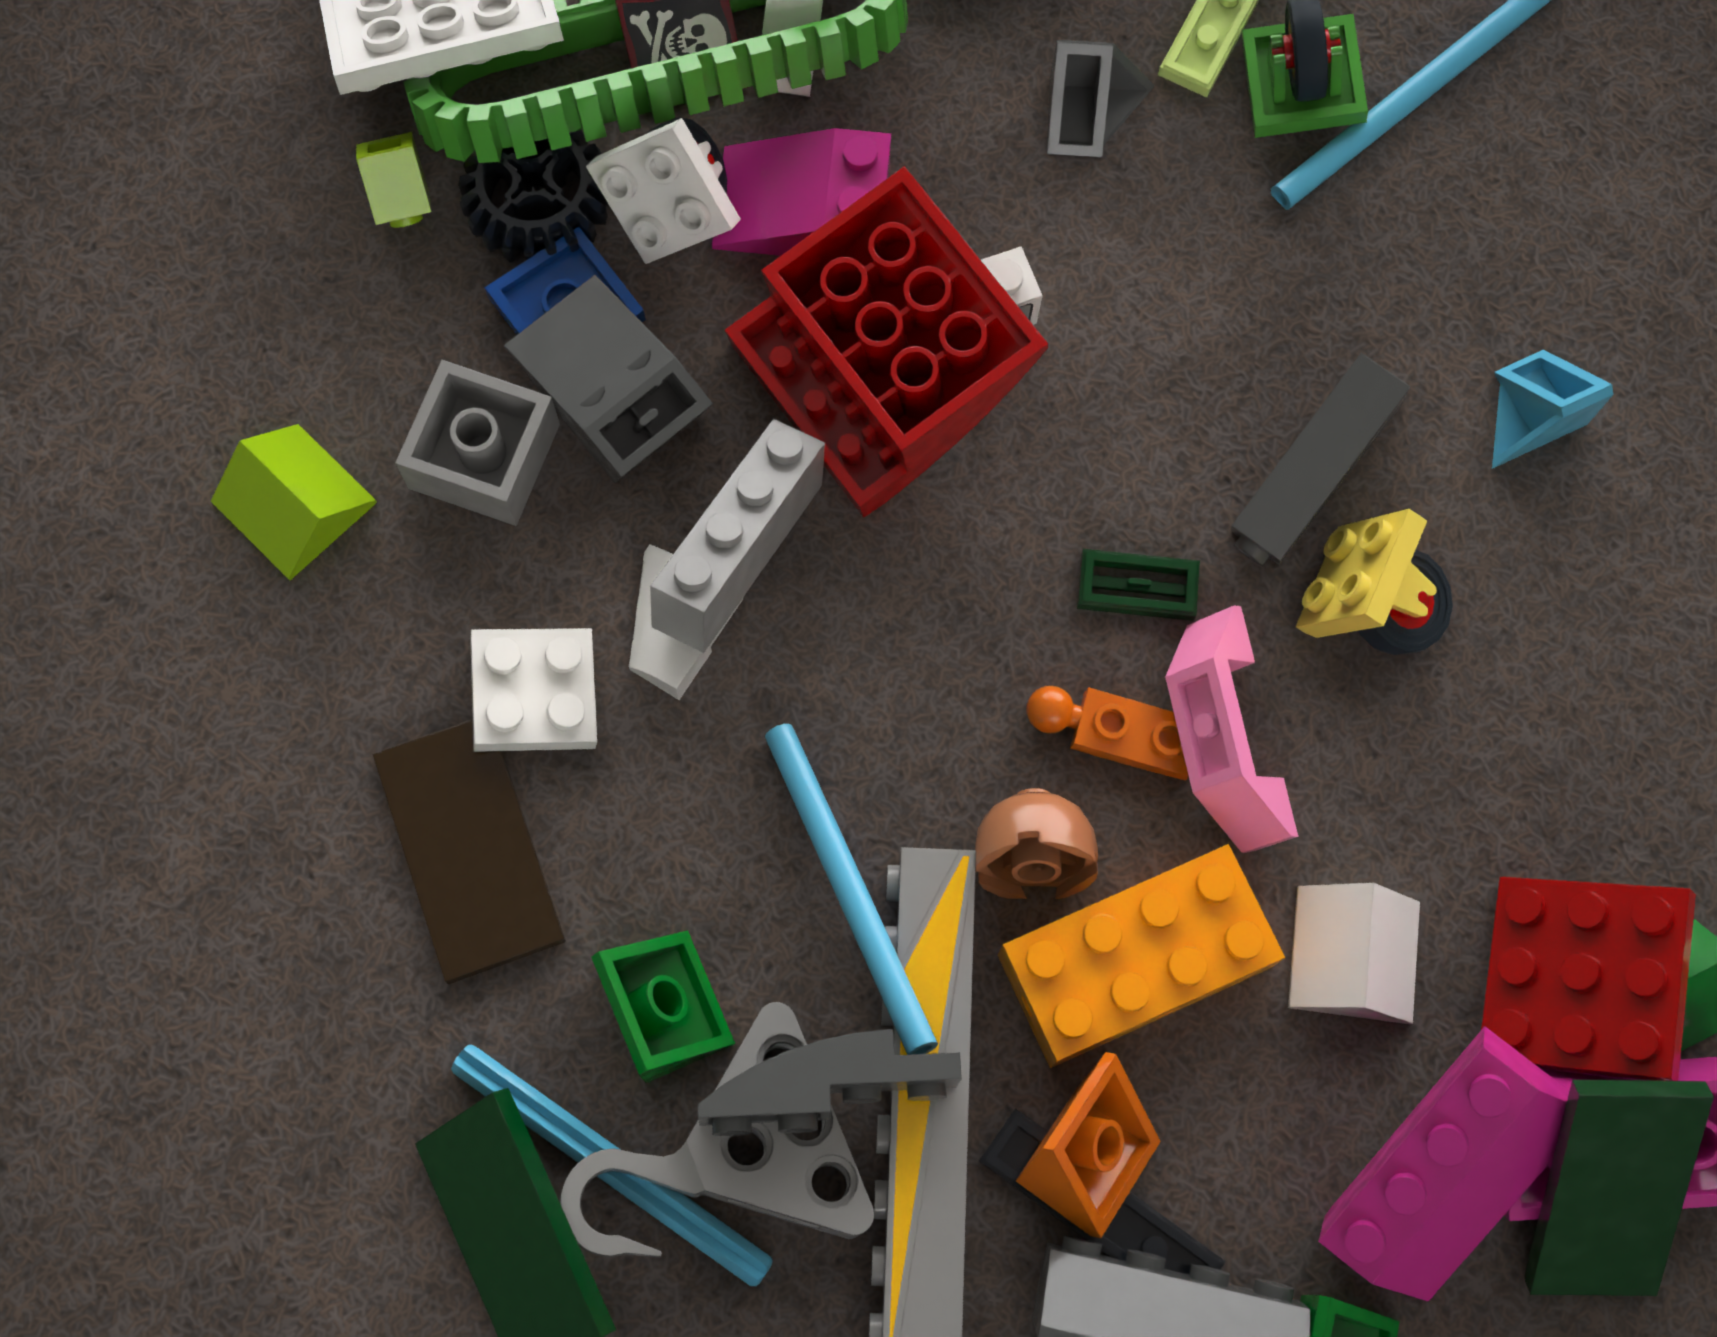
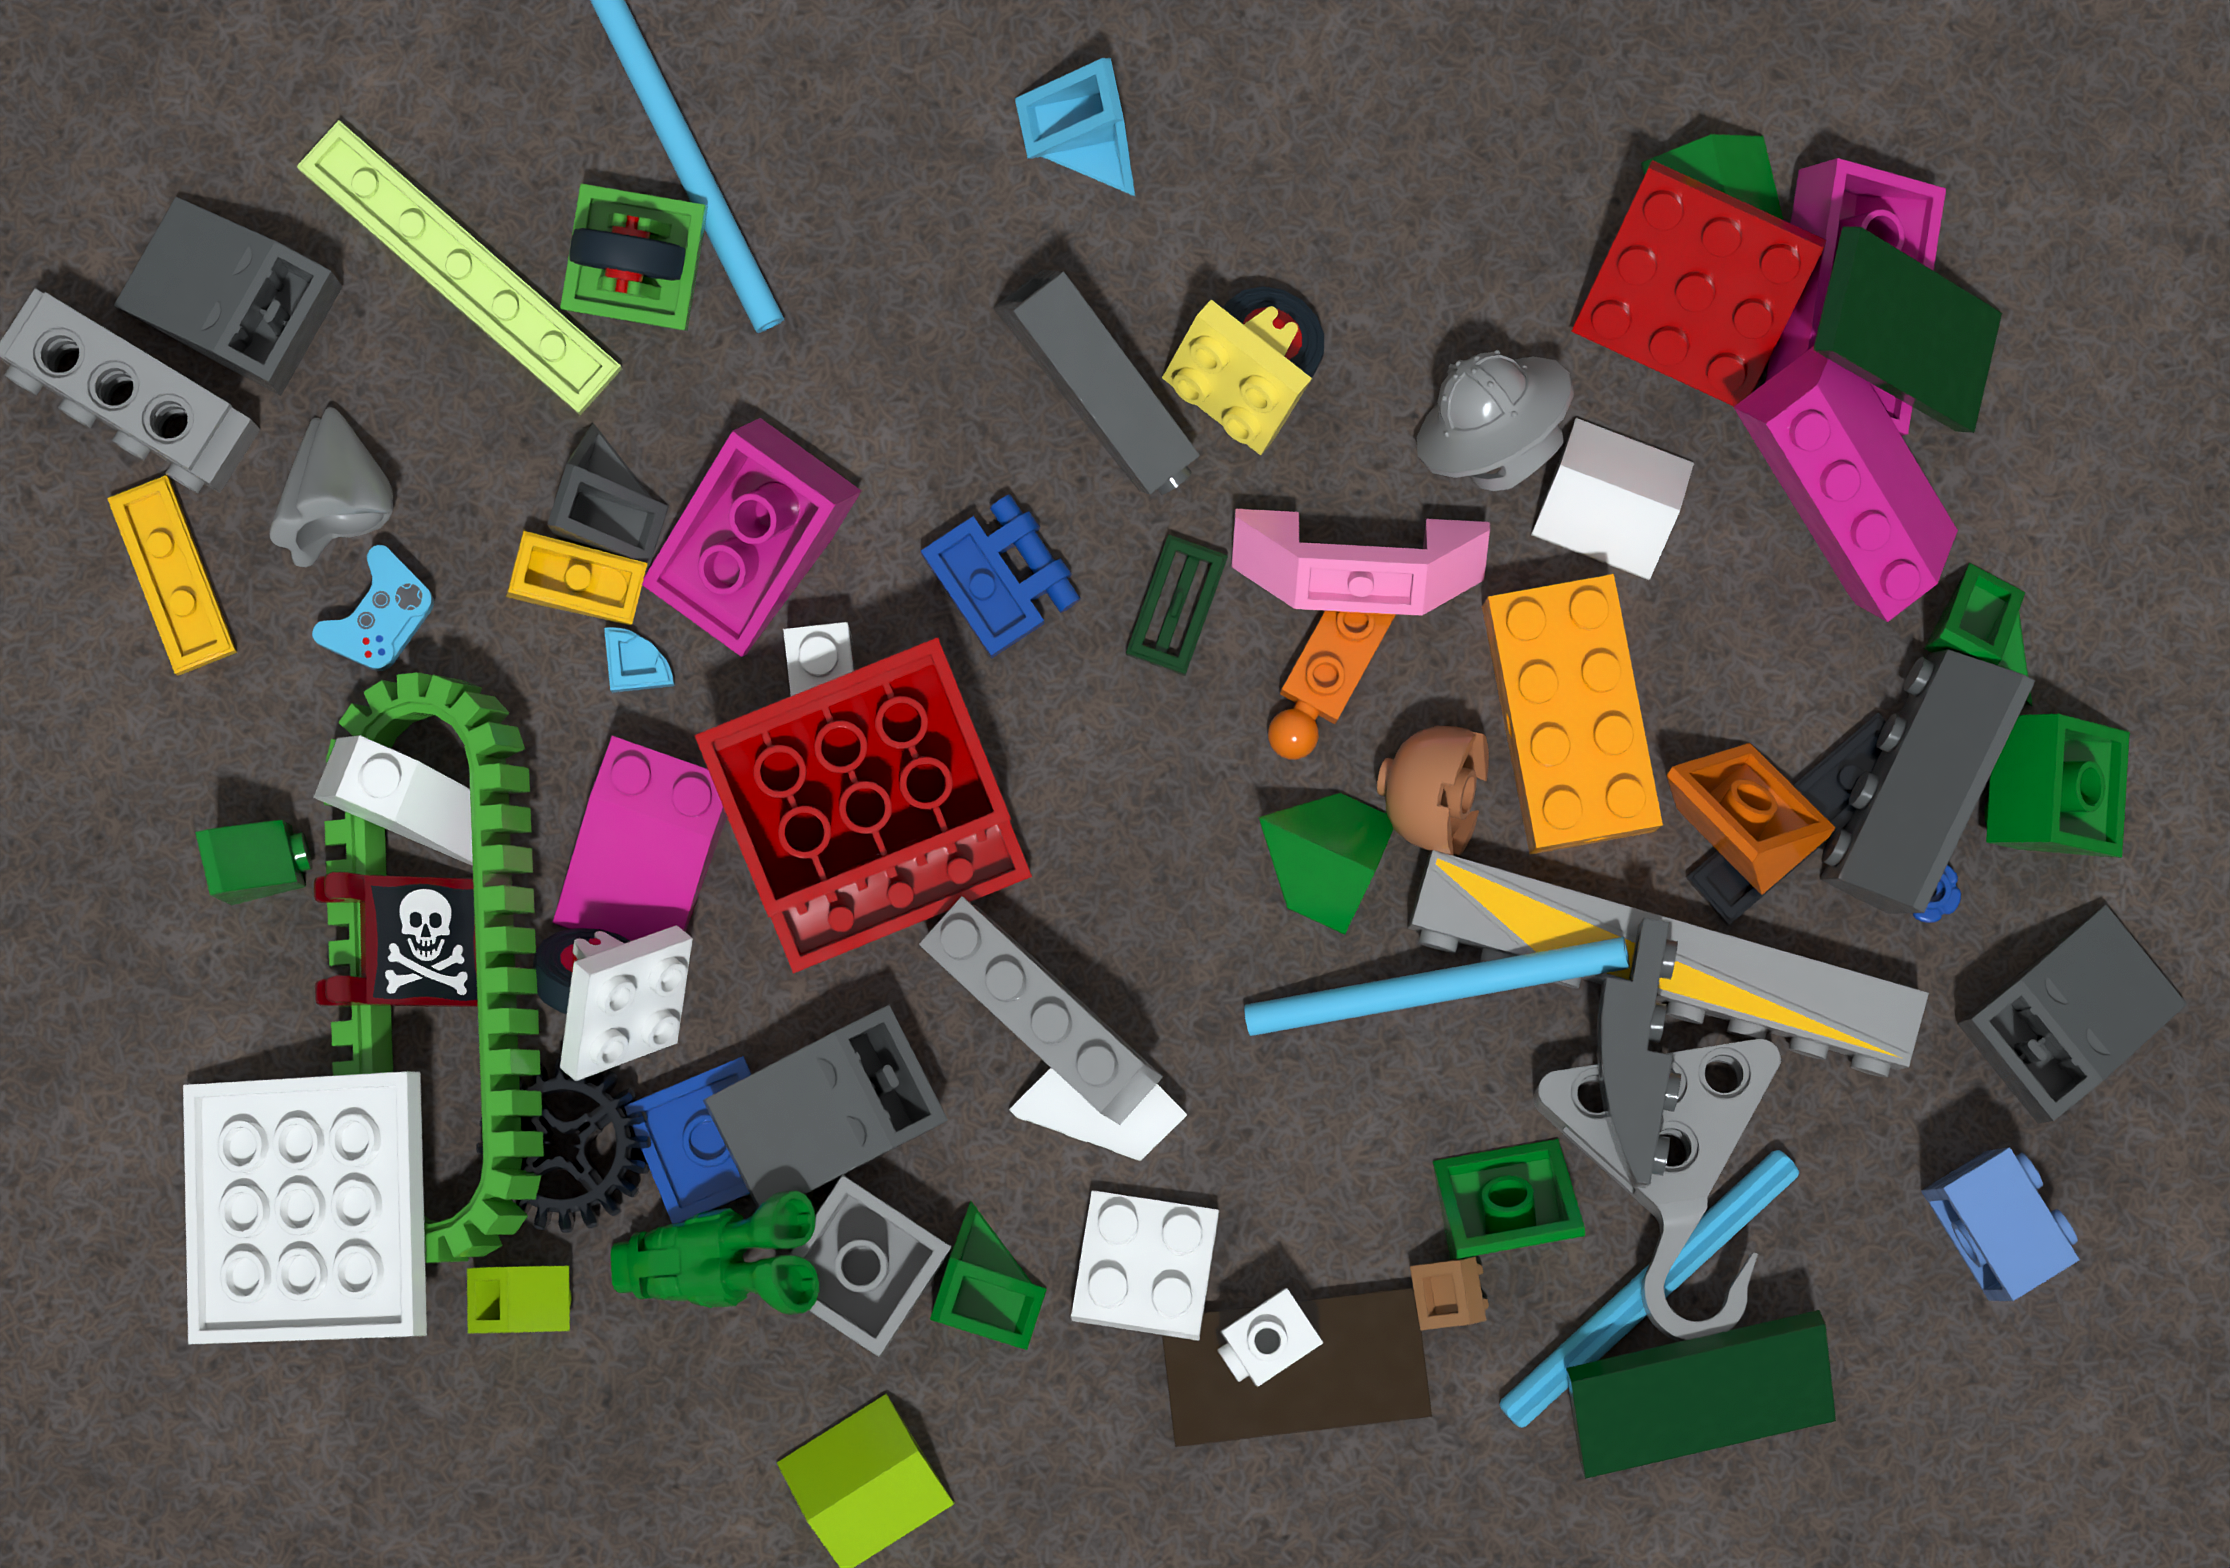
camera: 80 degrees left, 10 degrees up
(455, 303) = (705, 1262): none -> green piece
(484, 552) = (987, 1288): none -> green slope
(484, 806) = (1268, 1339): none -> white brick
(562, 969) = (1448, 1293): none -> medium nougat tile
(946, 763) = (1326, 855): none -> green slope
(961, 159) = (635, 662): none -> medium azure tile
(1019, 93) = (576, 578): none -> yellow slope
(1100, 217) = (749, 534): none -> dark pink slope
(1107, 415) = (983, 585): none -> blue plate
(1399, 813) = (1495, 417): none -> light grey helmet

